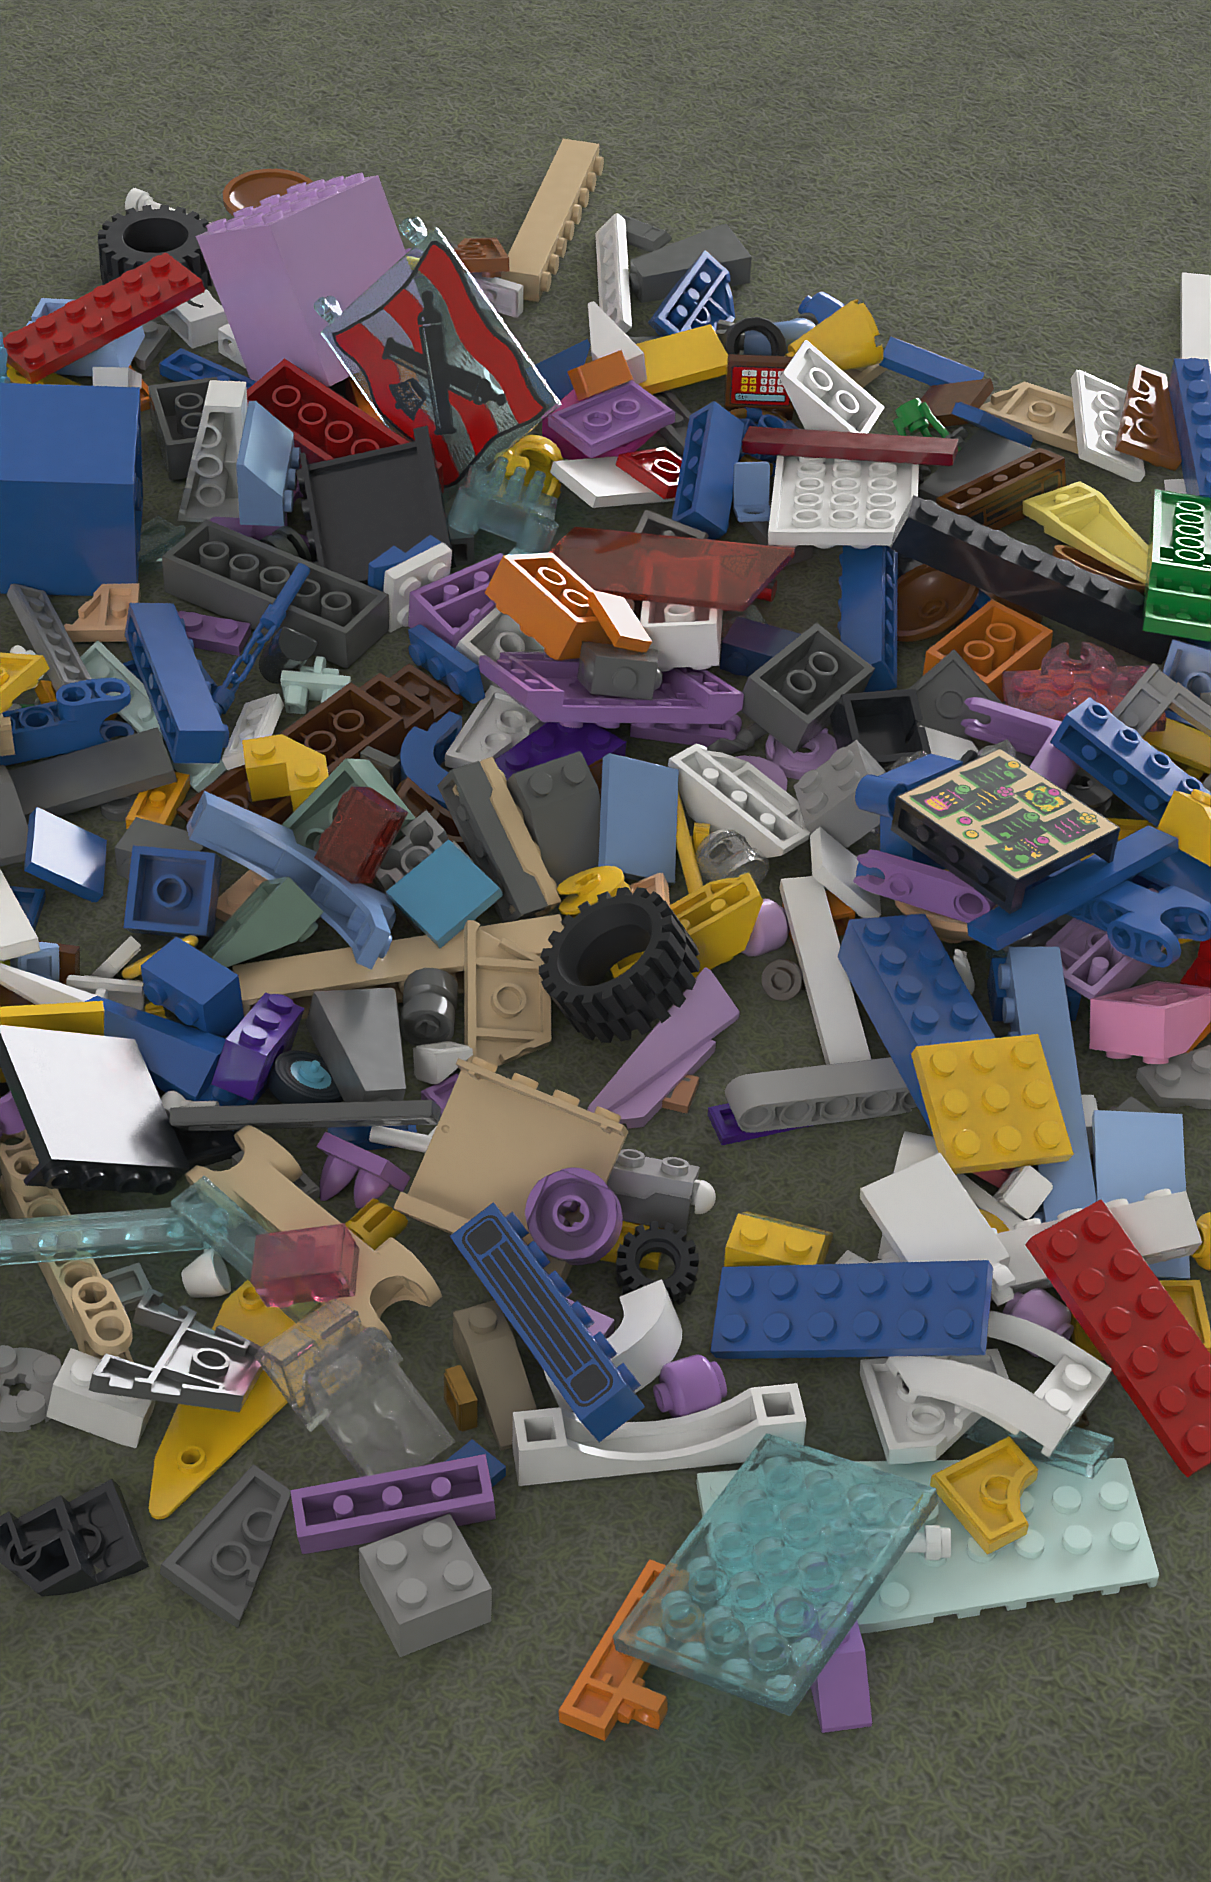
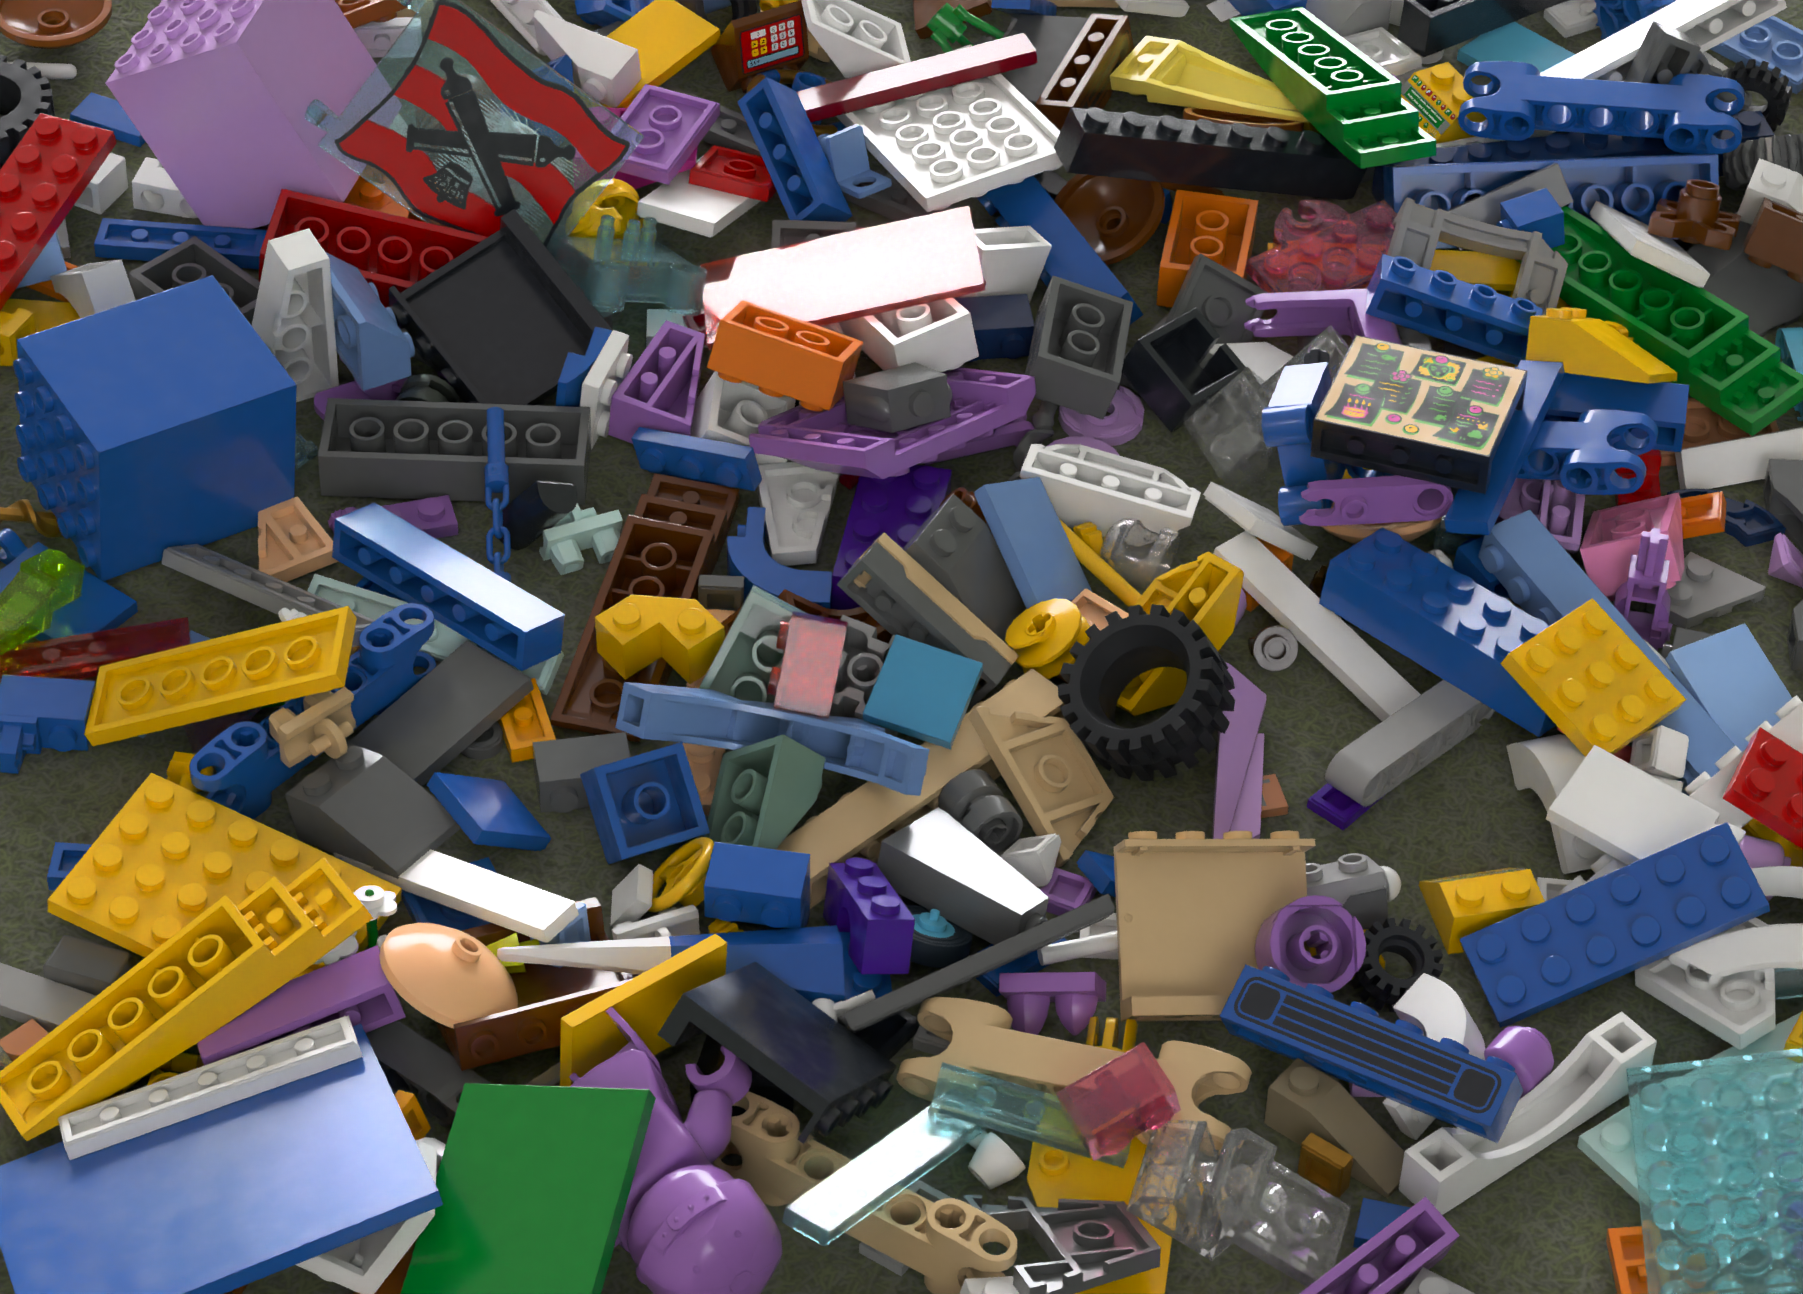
camera: 30 degrees left, 0 degrees up
(255, 721) = (555, 588): white tile -> none
(600, 375) = (619, 85): orange piece -> none
(619, 621) = (873, 347): tile -> none
(801, 600) = (1010, 260): none -> white torso
(829, 791) = (1206, 441): light grey brick -> none
(1127, 1048) = (1648, 584): none -> medium lavender piece

